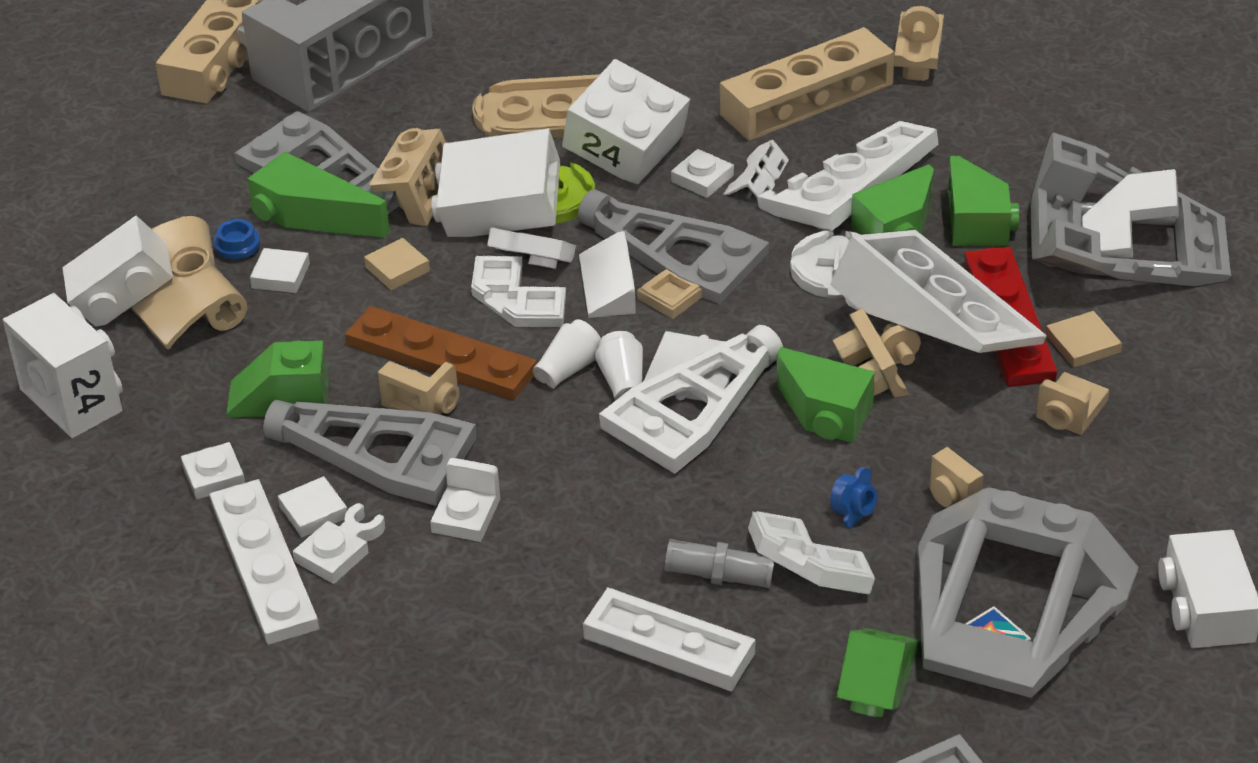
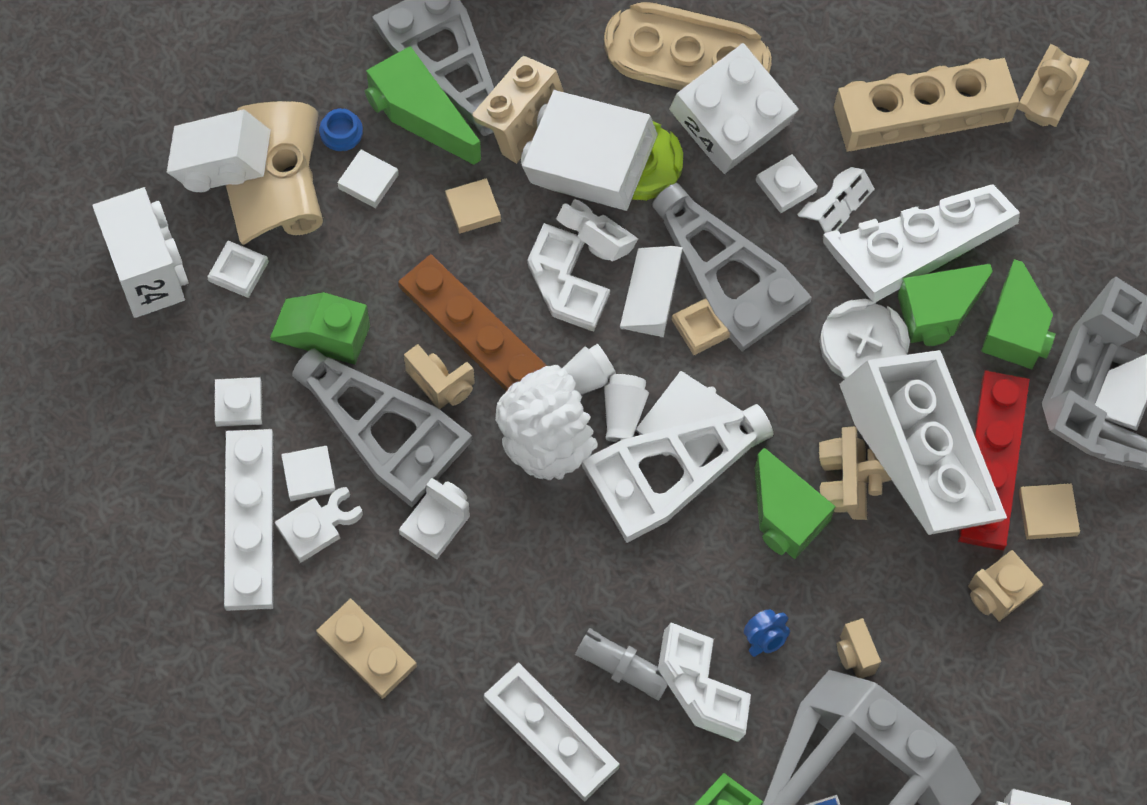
camera: 15 degrees right, 25 degrees up
(170, 370) = (238, 269): none -> white tile
(437, 630) = (366, 648): none -> tan plate
(551, 387) = (545, 424): none -> white hair

